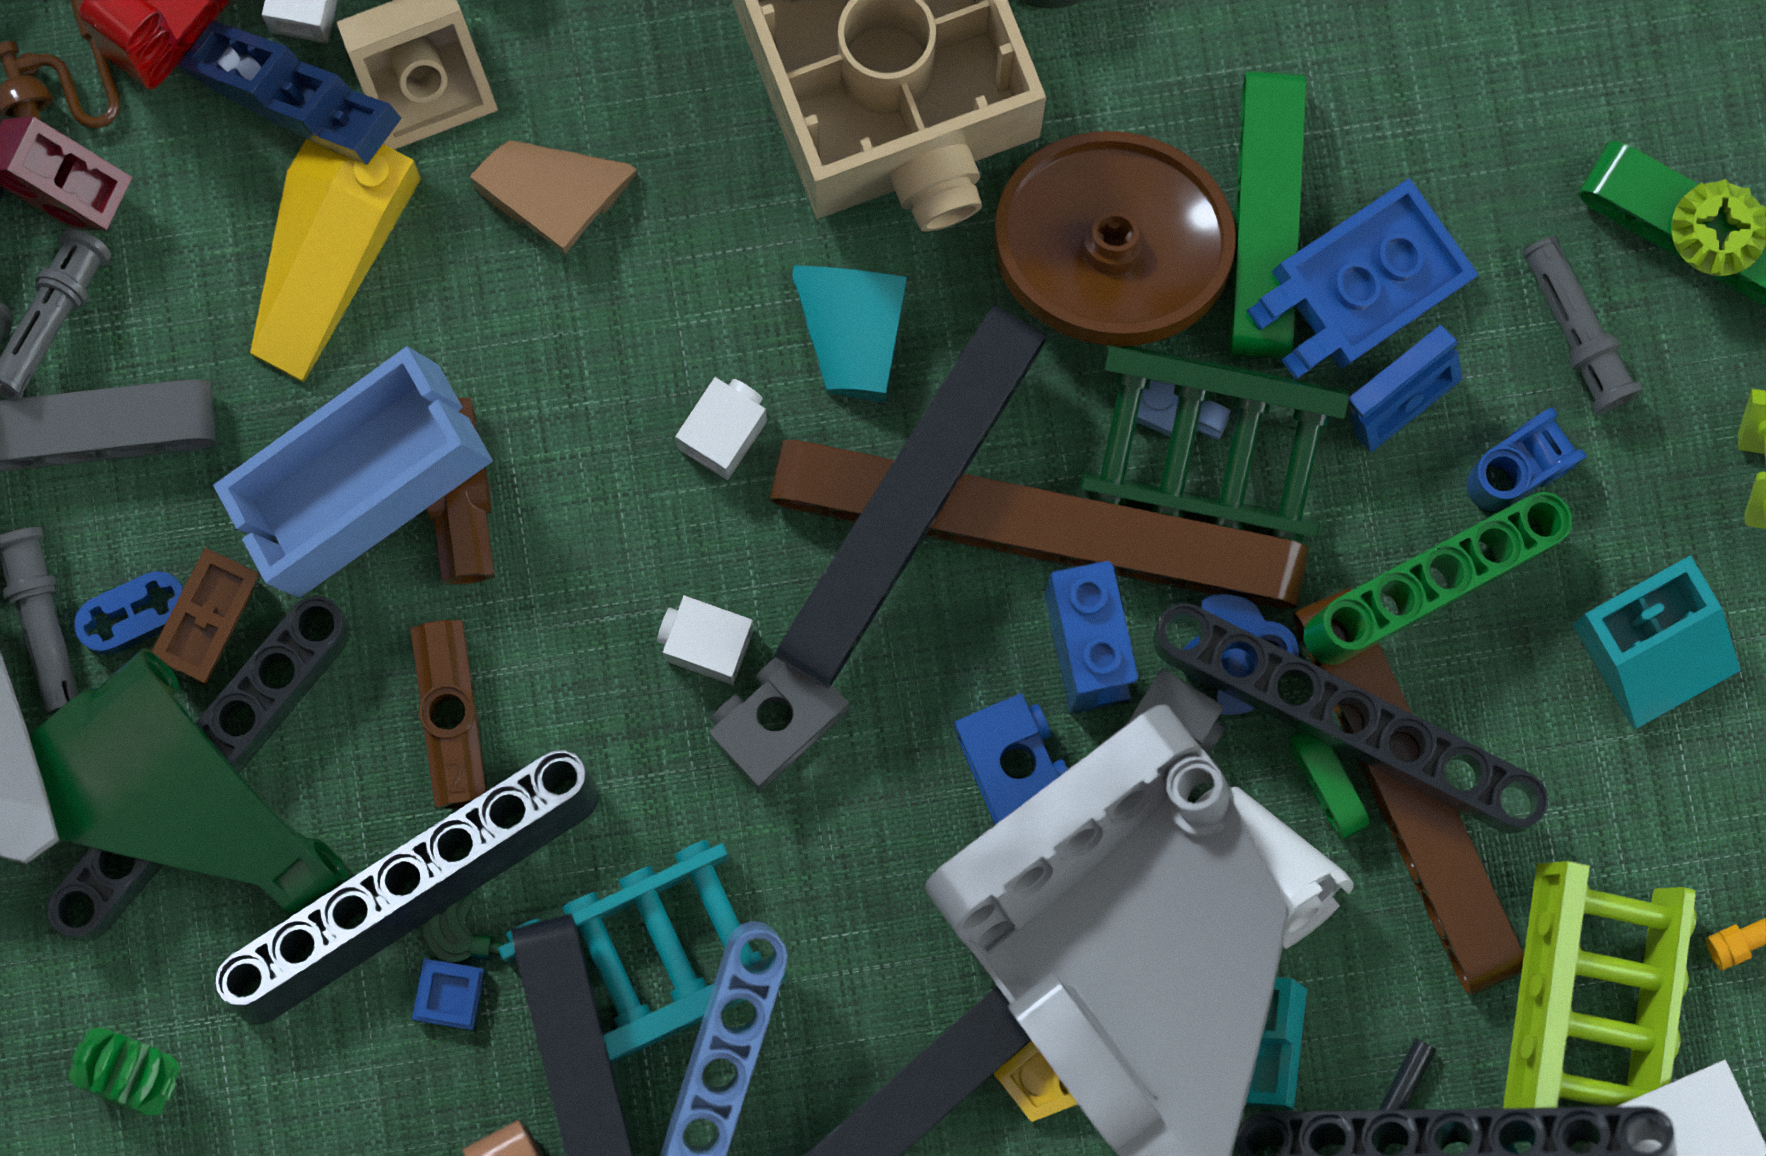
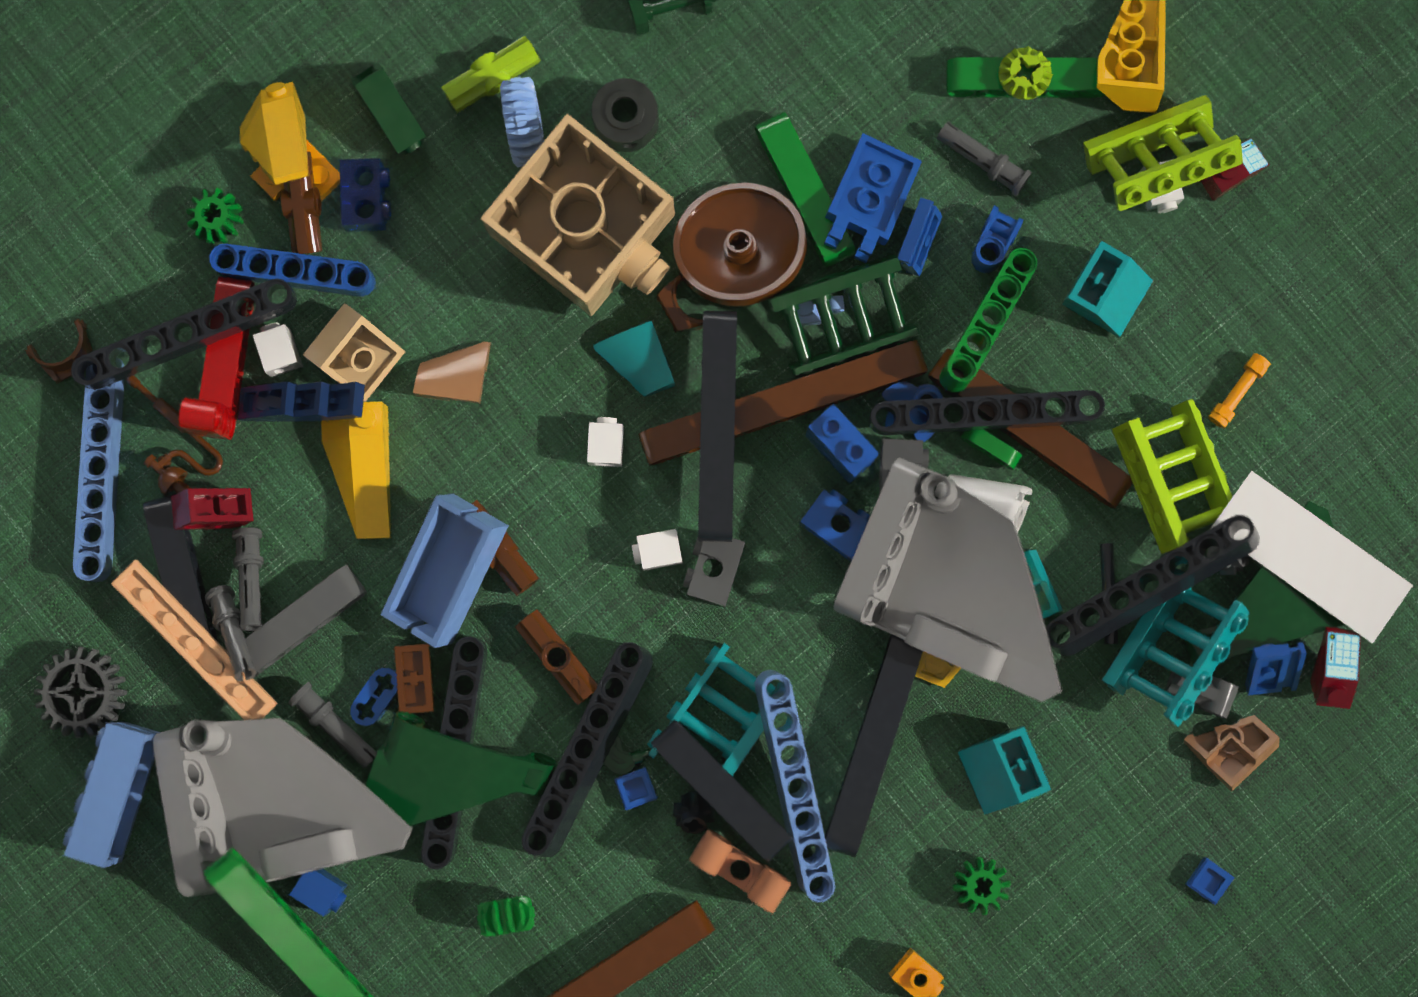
camera: 25 degrees left, 5 degrees up
(515, 1084) = (693, 813): none -> black gear
(950, 301) = (668, 301): none -> reddish brown helmet

